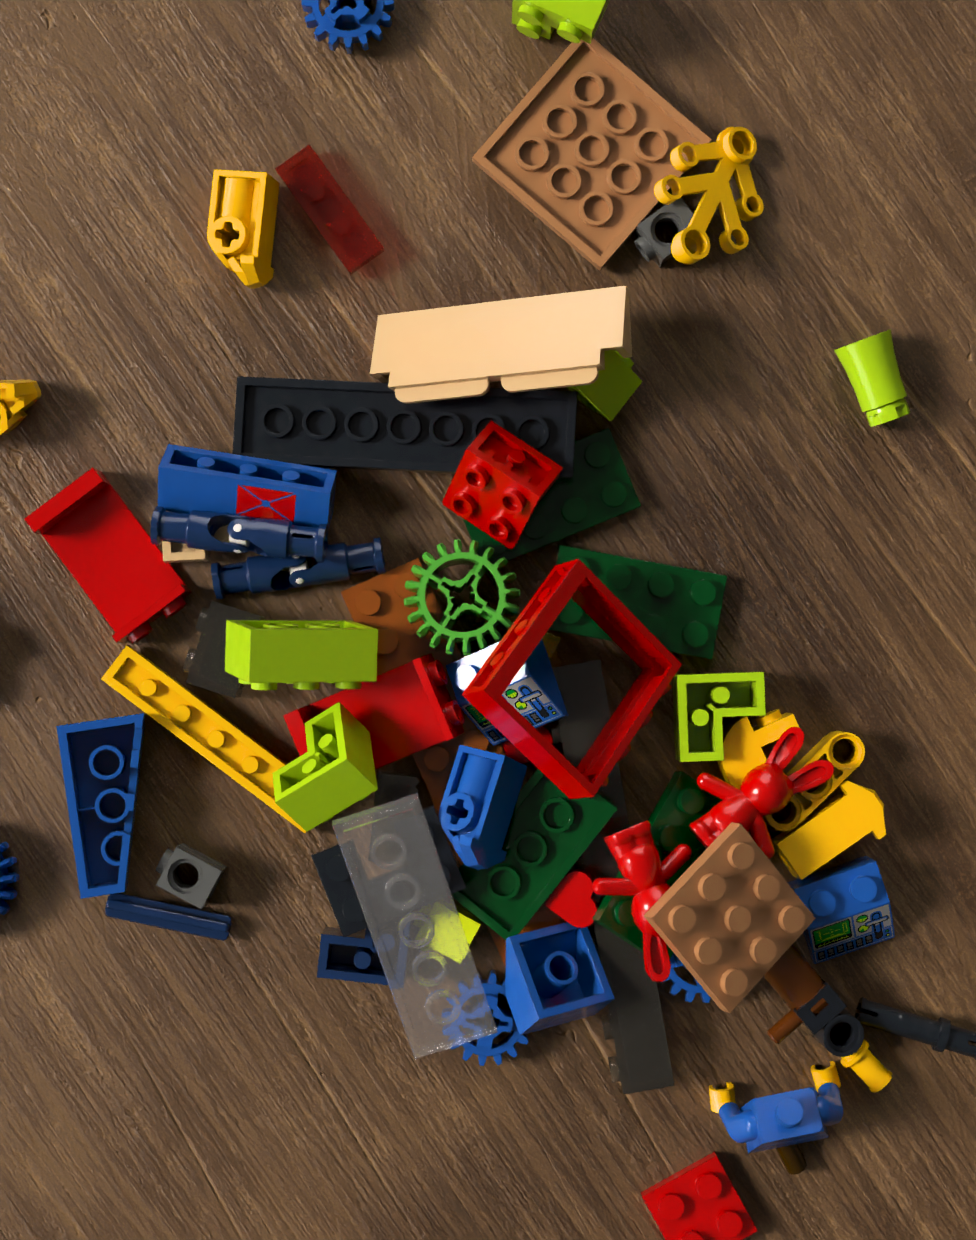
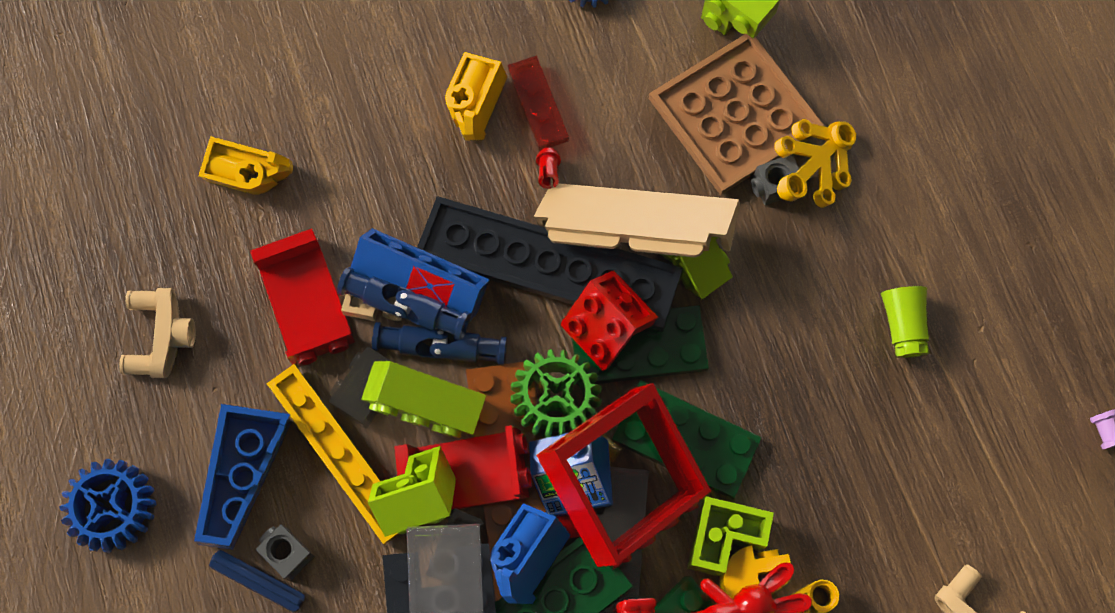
camera: 15 degrees right, 15 degrees down
(366, 288) = (548, 163): none -> red pin

